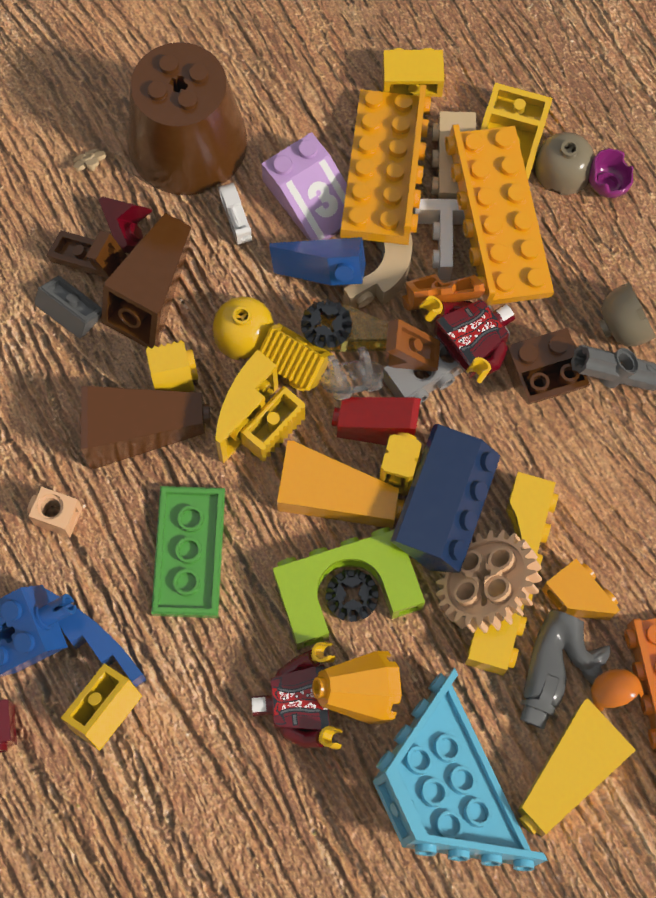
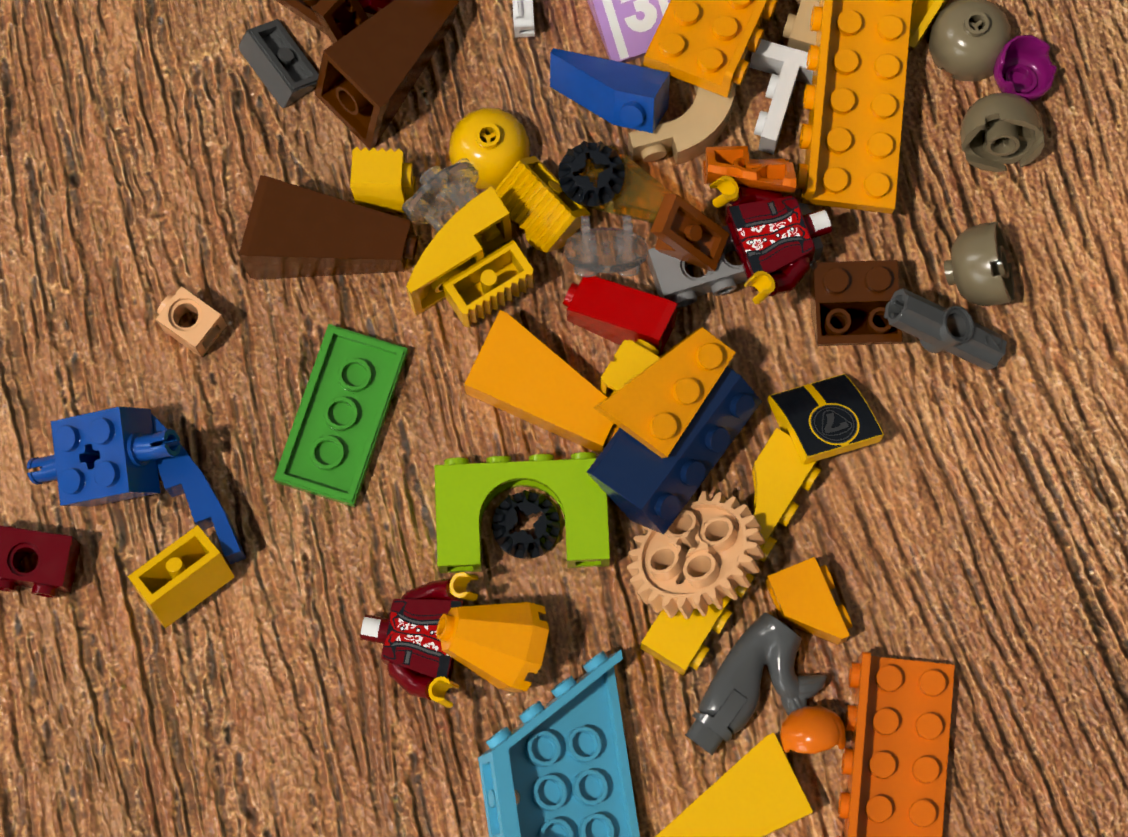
camera: 20 degrees right, 5 degrees up
(219, 366) = (442, 193): none -> clear plate
(435, 465) = (669, 392): none -> light orange wing
(550, 455) = (825, 418): none -> black slope
(610, 220) = (1001, 132): none -> dark tan cylinder

